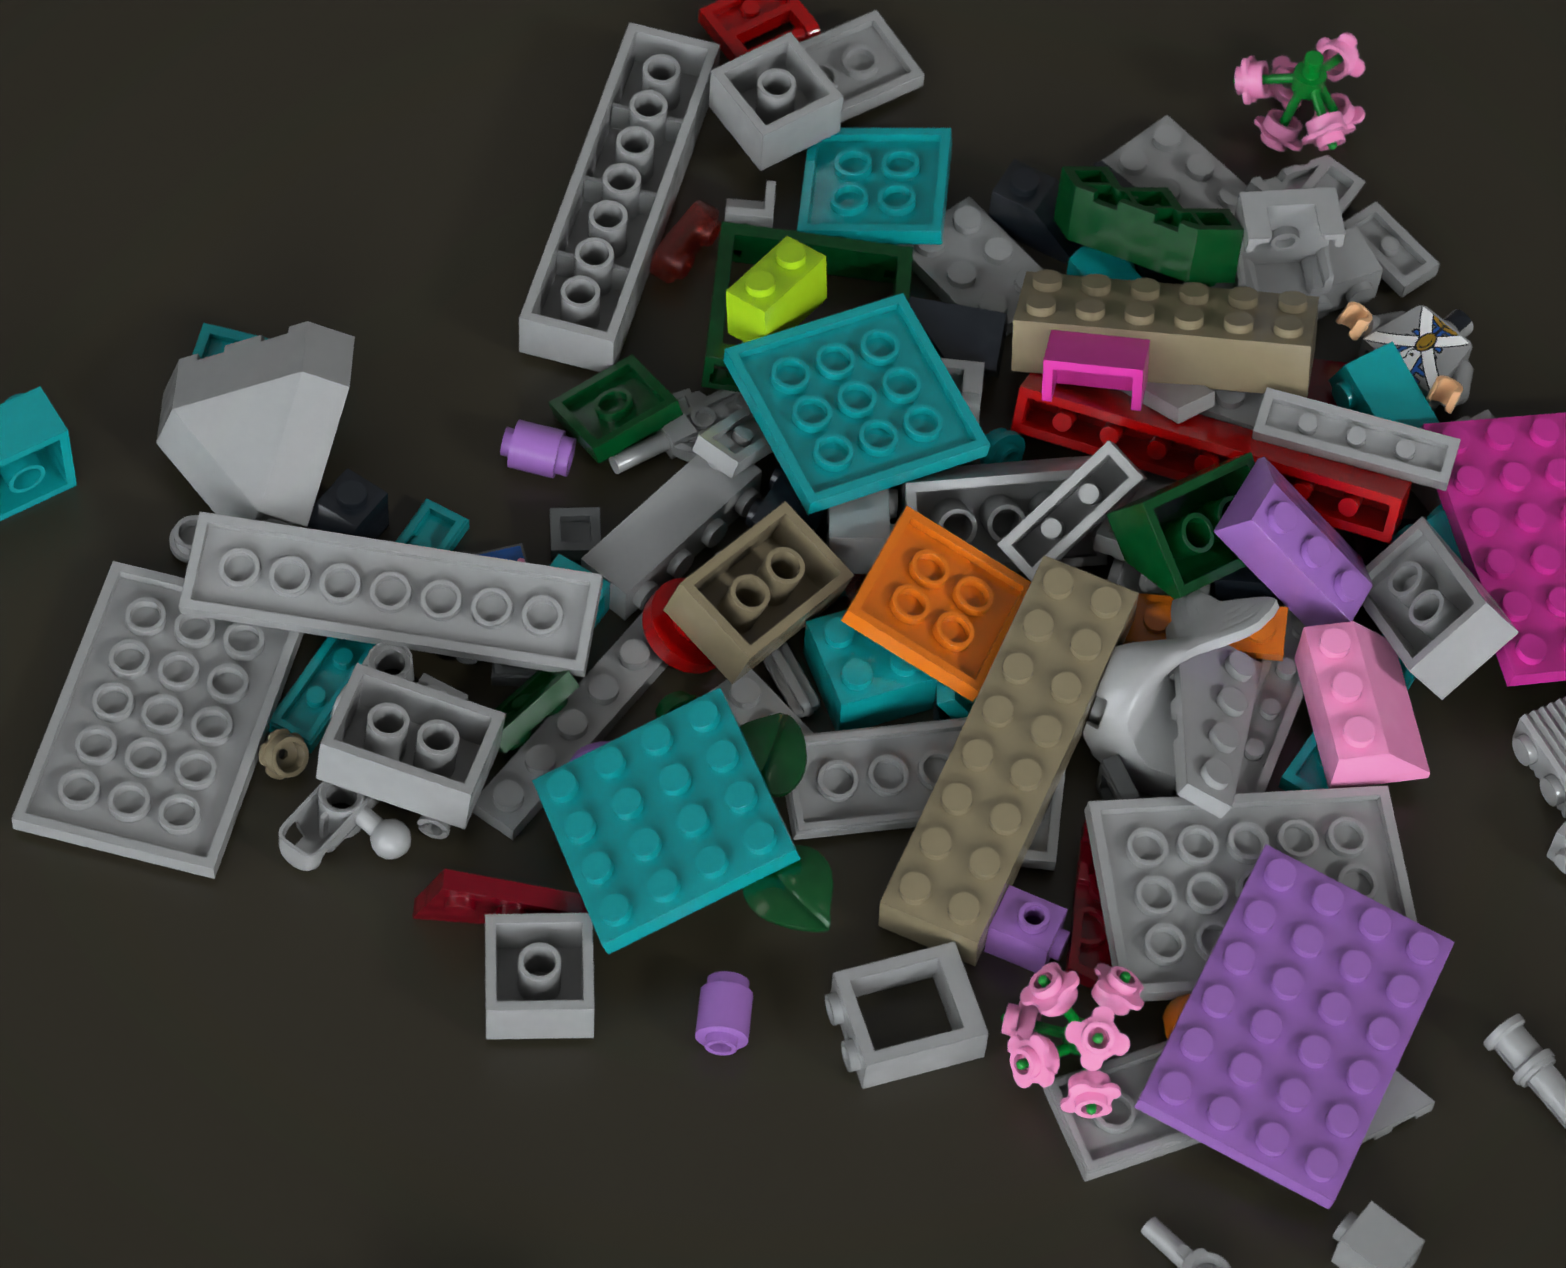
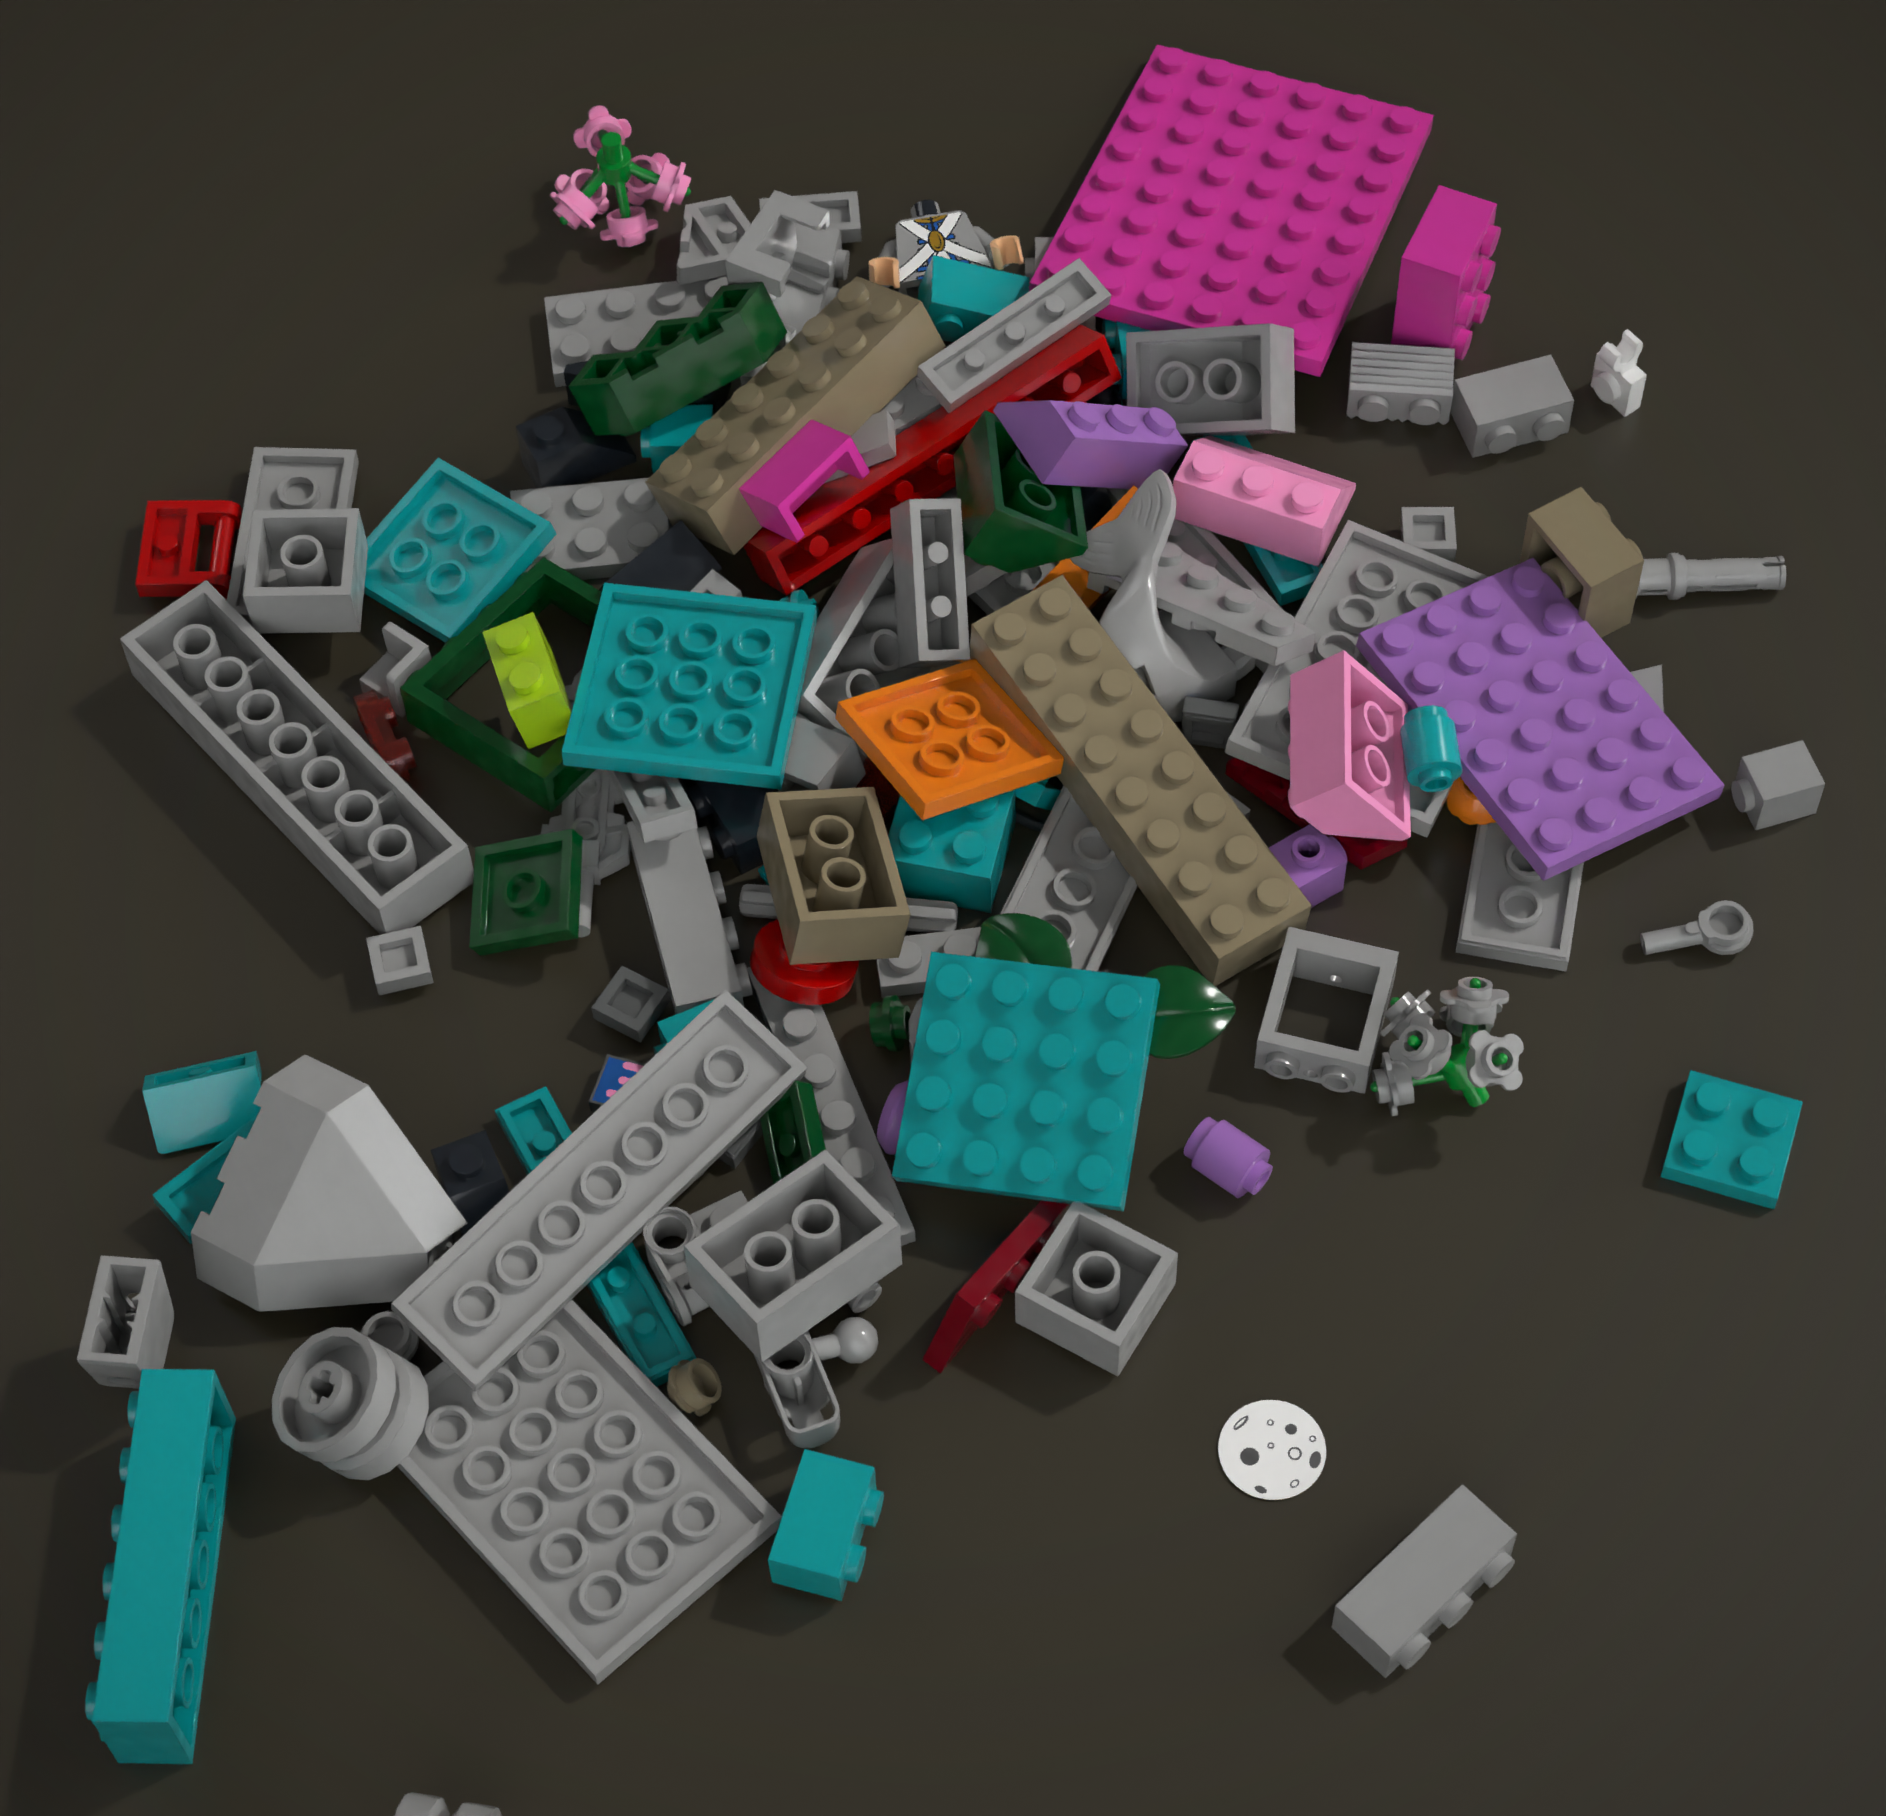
camera: 50 degrees left, 0 degrees up
(78, 362) = (123, 1333): none -> light grey torso
(113, 537) = (350, 1403): none -> light grey wheel
(222, 899) = (824, 1524): none -> teal brick
(299, 296) = (202, 1101): none -> teal panel
(498, 1183) = (1272, 1449): none -> white sticker
(506, 364) = (399, 960): none -> light grey plate
(538, 449) = (516, 983): medium lavender brick -> none
(919, 1138) = (1426, 1053): none -> light grey plant
(1093, 1039) = (1410, 872): bright pink plant -> none
(1136, 892) = (1347, 751): none -> bright pink slope
(1185, 951) = (1430, 748): none -> teal brick
(1432, 857) = (1430, 530): none -> light grey plate
(1473, 983) = (1586, 558): none -> dark tan brick

